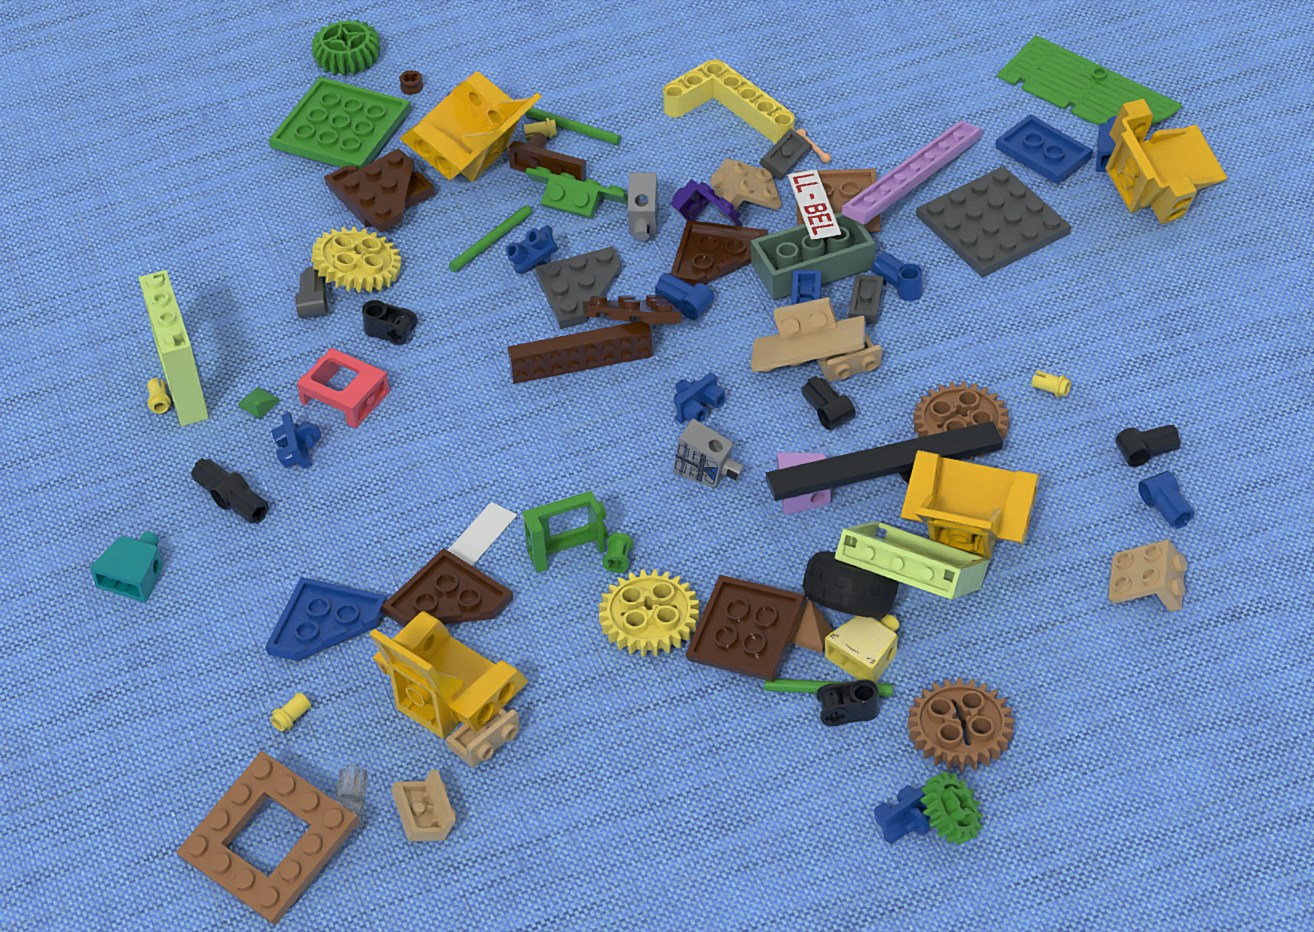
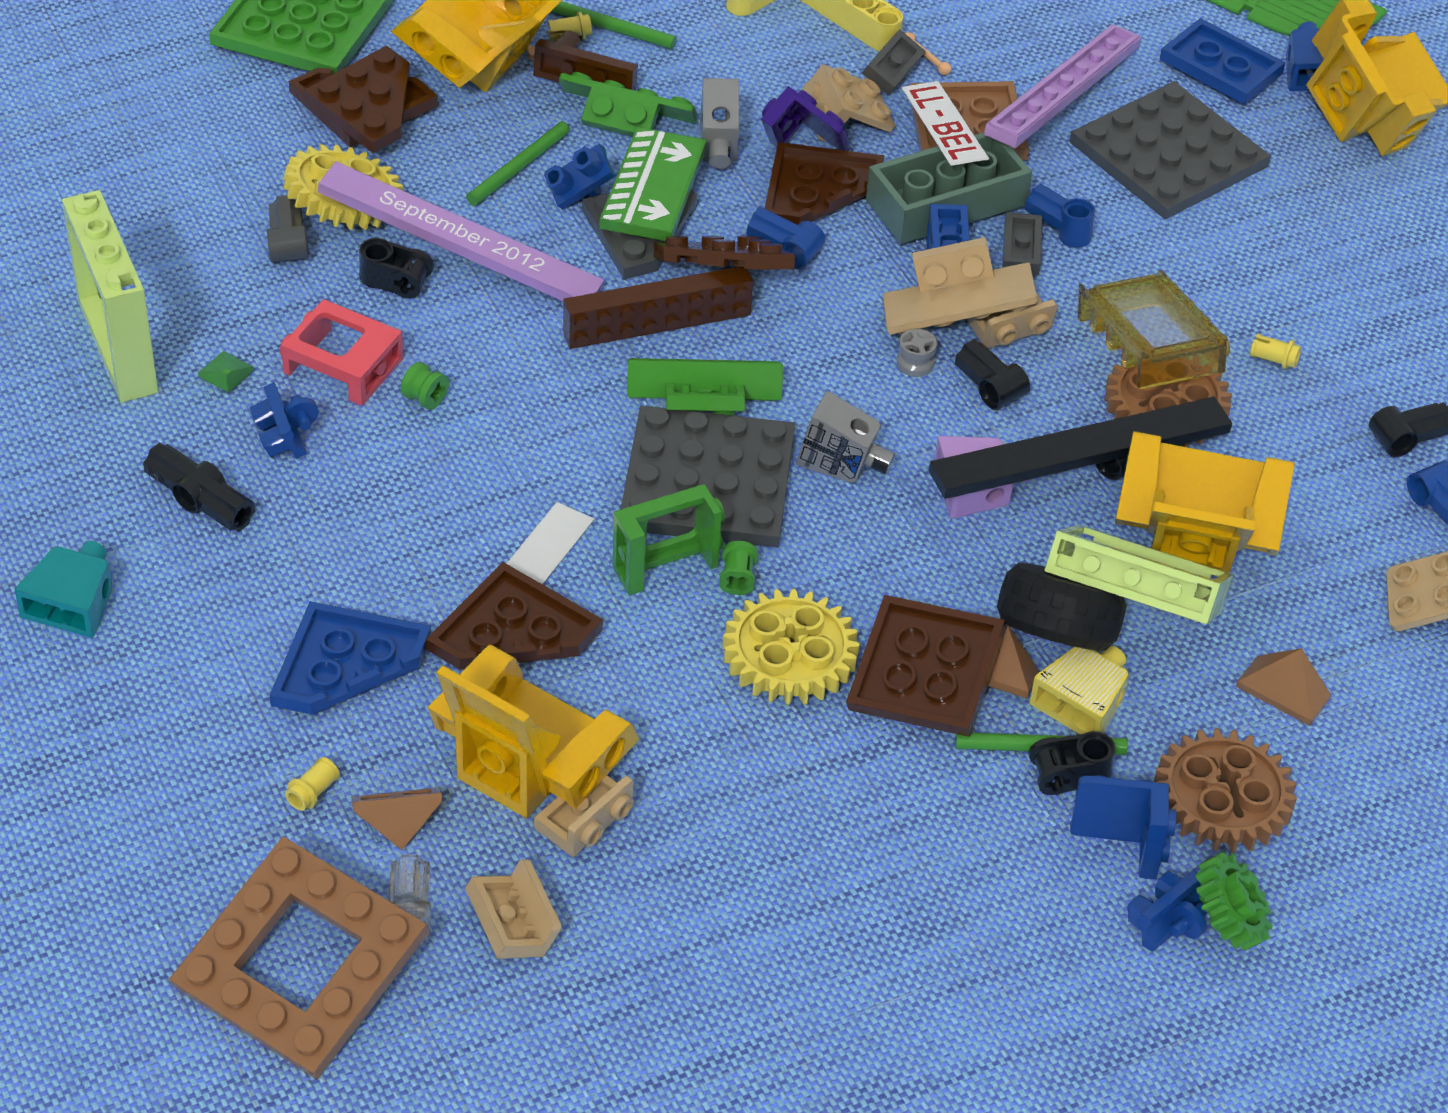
camera: 10 degrees left, 0 degrees up
(158, 399) = (88, 367): light yellow pin -> none
(349, 734) = (398, 813): none -> medium nougat slope
(401, 413) = (424, 385): none -> bright green wheel
(436, 296) = (456, 233): none -> lavender tile
(587, 255) = (653, 184): none -> bright green tile
(609, 411) = (705, 384): none -> bright green bracket
(619, 471) = (734, 456): none -> dark grey plate
(695, 395) = (816, 364): blue hips -> none
(773, 386) = (916, 352): none -> light grey wheel
(878, 740) = (1126, 813): none -> blue bracket
(955, 367) = (1155, 329): none -> clear yellow window
(1021, 644) = (1286, 683): none -> medium nougat slope

